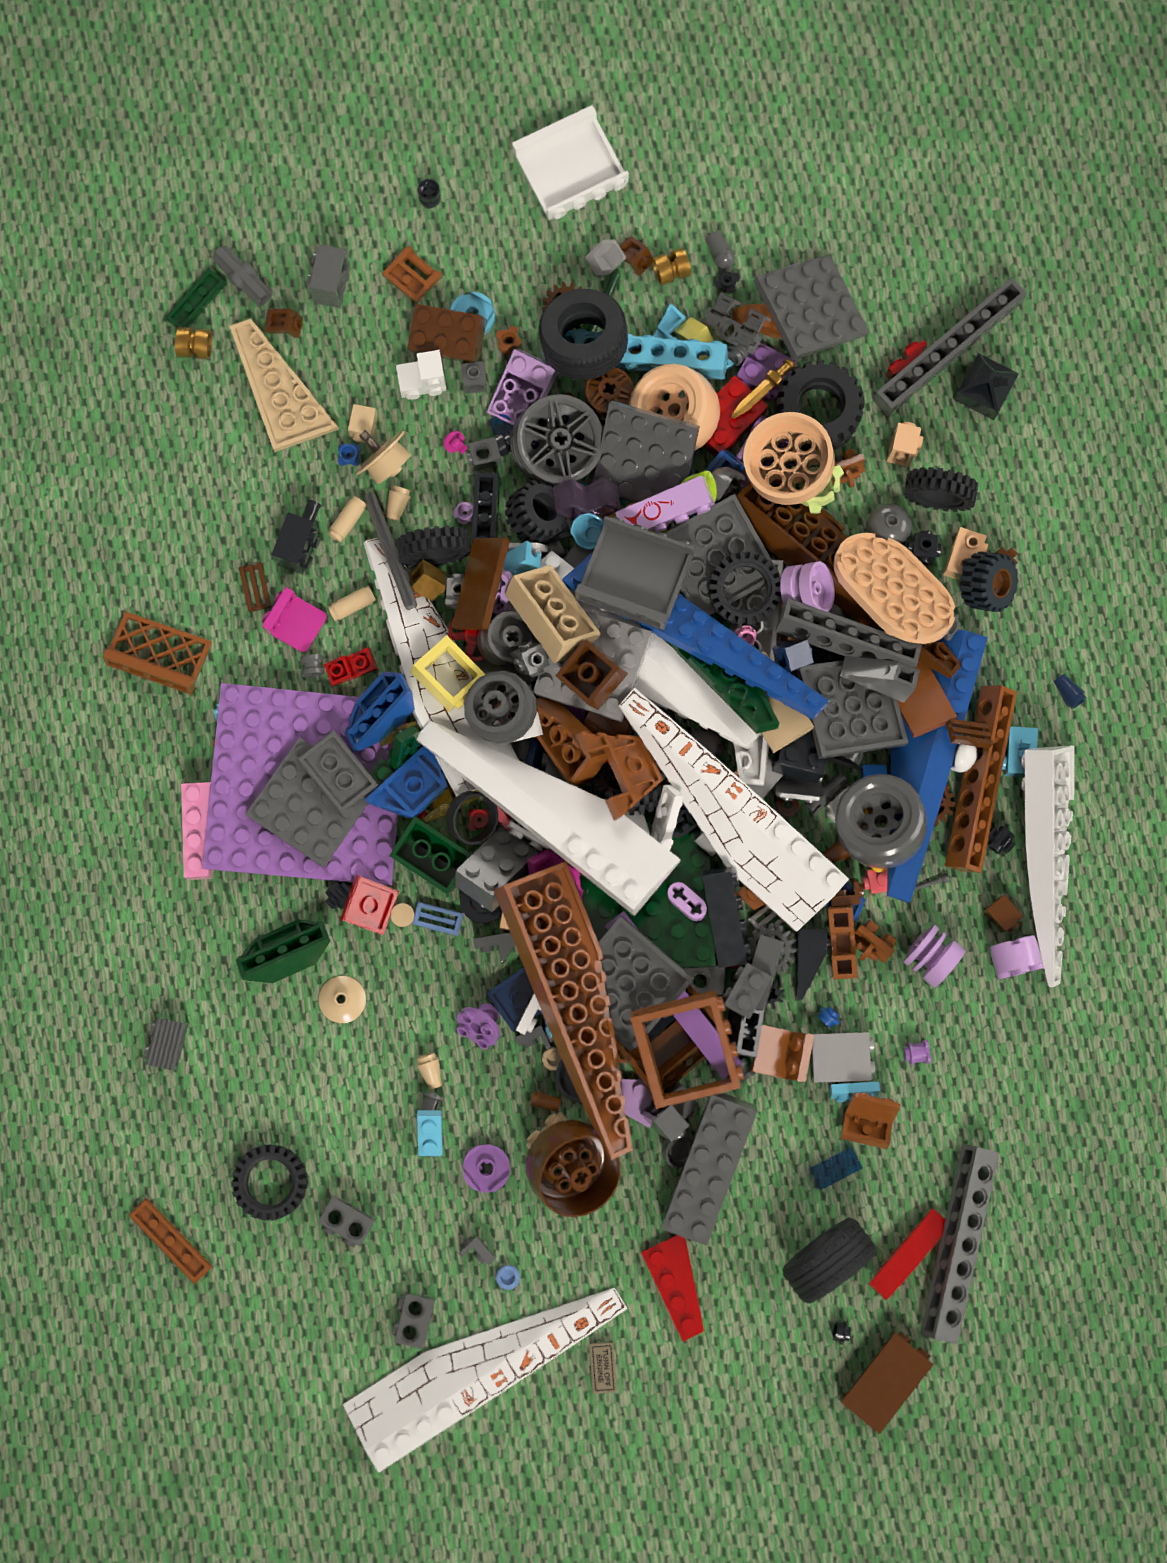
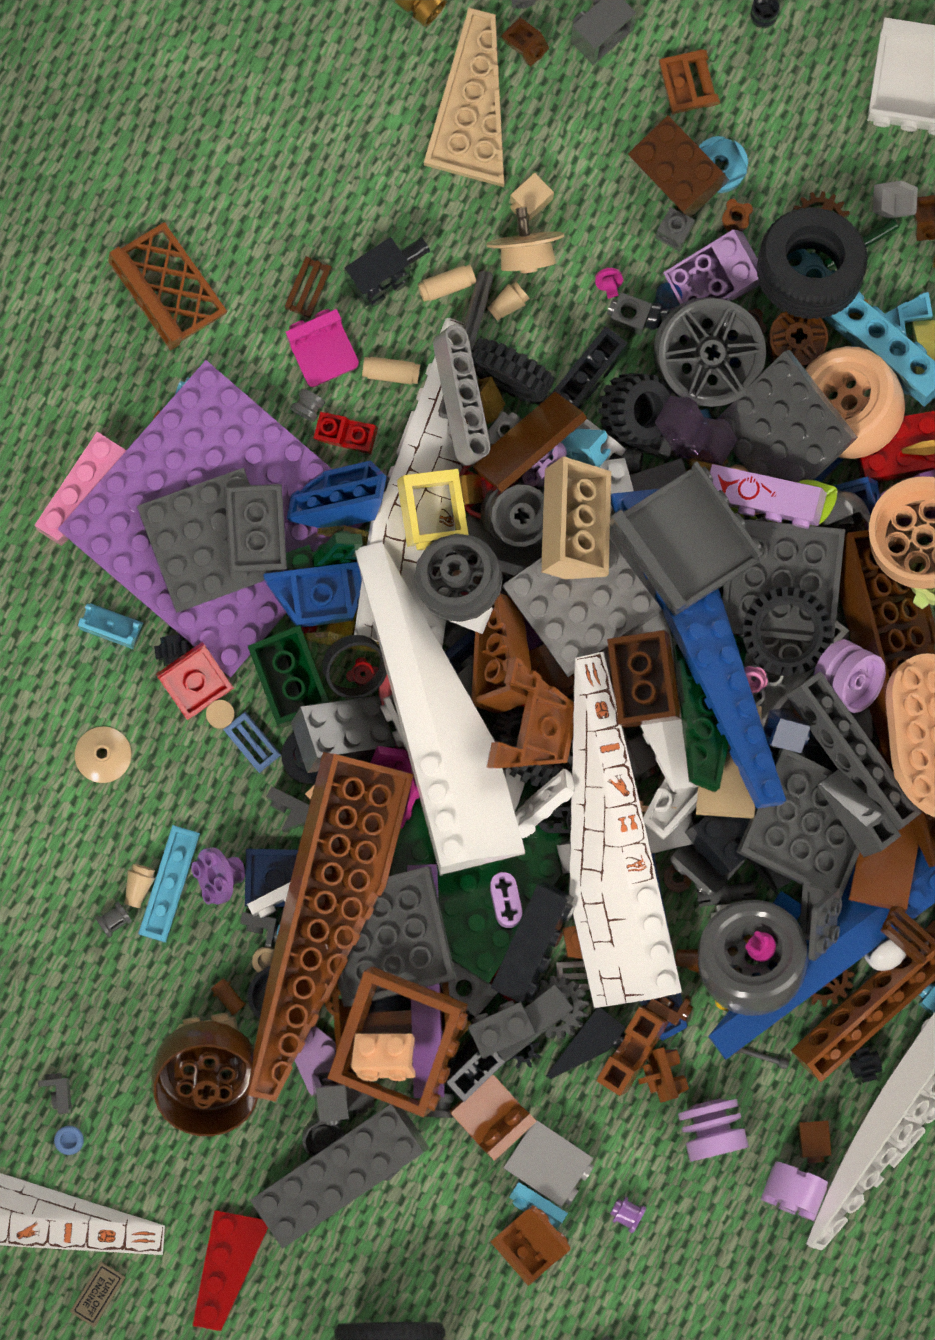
camera: 35 degrees right, 0 degrees up
(283, 951) = (79, 667): dark green wedge -> none
(284, 908) = (110, 625): none -> medium azure hinge
(344, 449) = (495, 211): blue plate -> none
(413, 584) = (457, 407): none -> light grey beam
(422, 377) = (623, 192): white brick -> none
(429, 1132) = (93, 945): medium azure plate -> none
(450, 1054) = (169, 883): none -> medium azure tile
(458, 512) = (563, 353): lavender plate -> none
(465, 642) = (471, 489): none -> pearl gold slope
(488, 1154) = (111, 1008): medium lavender plate -> none
(530, 659) = (514, 547): dark grey brick -> none
(586, 530) = (673, 461): medium azure hair -> none
(591, 674) = (569, 608): reddish brown brick -> none
(675, 686) = (643, 679): none -> reddish brown brick
(685, 1066) = (383, 1056): none -> light nougat bracket
(829, 1016) = (566, 1115): blue plate -> none
(835, 1168) = (465, 1268): tile -> none
(875, 881) = (708, 1015): coral bracket -> none
(882, 809) = (761, 946): none -> dark pink plate
(904, 763) = (819, 917): none -> dark grey bracket

